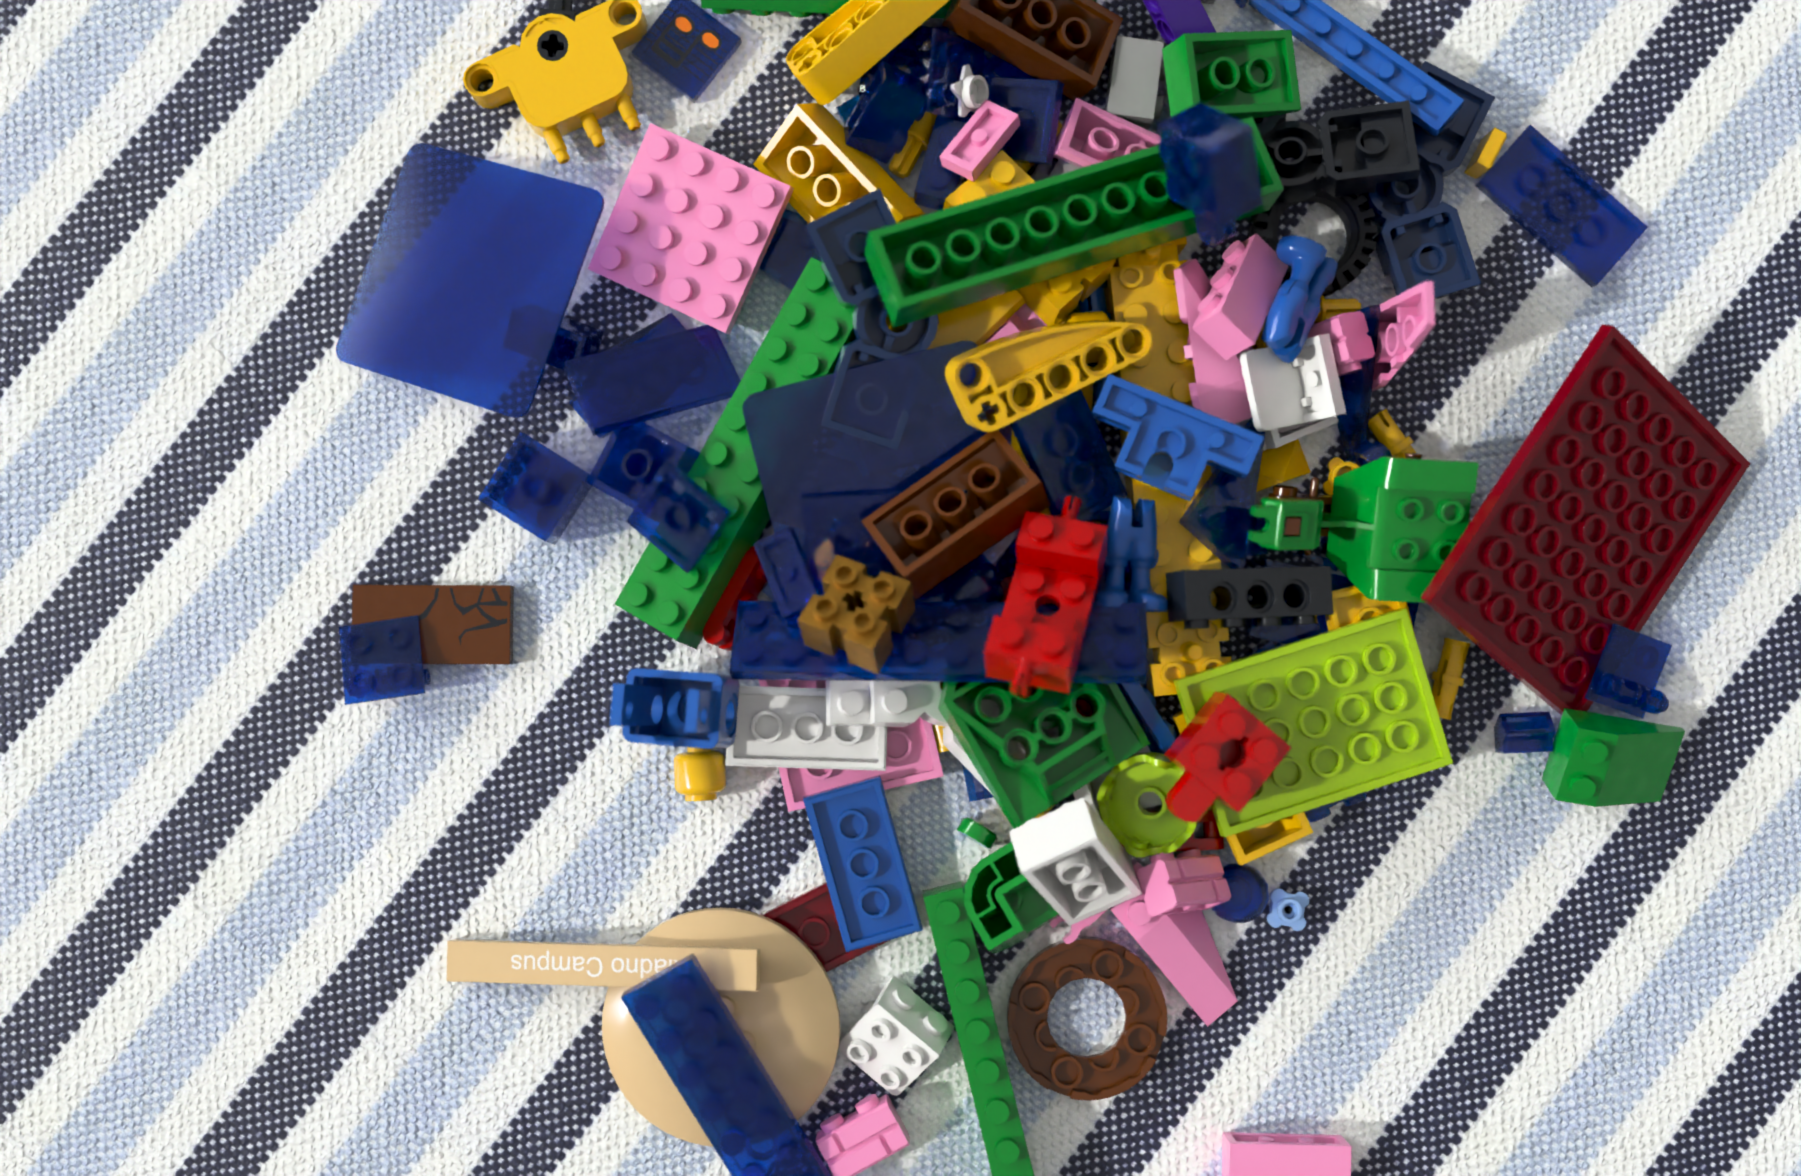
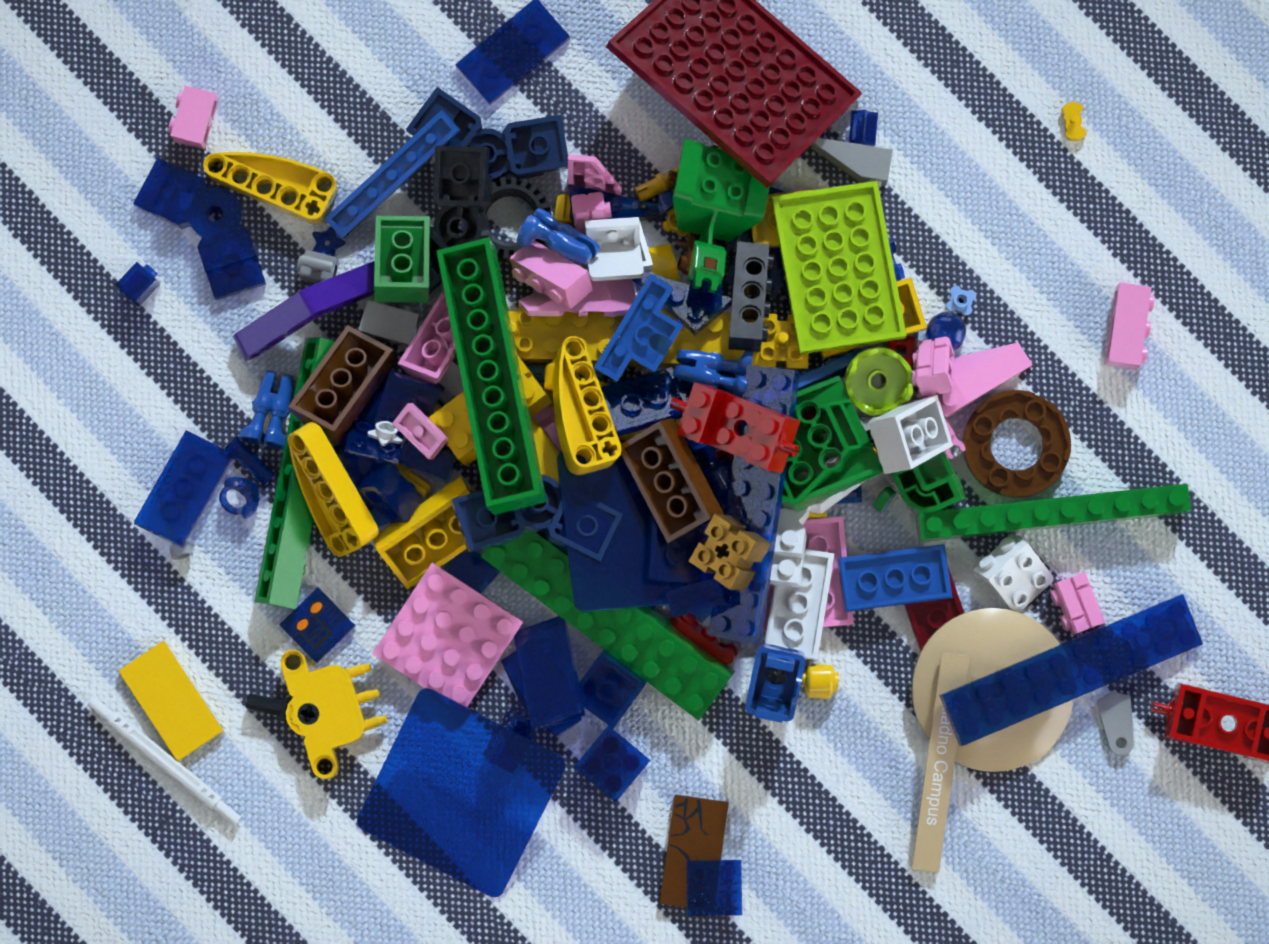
camera: 80 degrees left, 5 degrees down
(679, 517) = (648, 663): clear blue slope -> none
(1210, 169) = (477, 284): clear blue brick -> none
(1223, 758) = (854, 330): red brick -> none
(1448, 676) = (820, 173): yellow pin -> none
(1477, 727) = (857, 160): none -> light grey slope
(1486, 153) = (471, 96): yellow tile -> none
(1583, 1043) = (1073, 121): none -> yellow piece
(1610, 759) = (888, 76): green slope -> none
(1630, 673) = (832, 55): clear blue hinge -> none

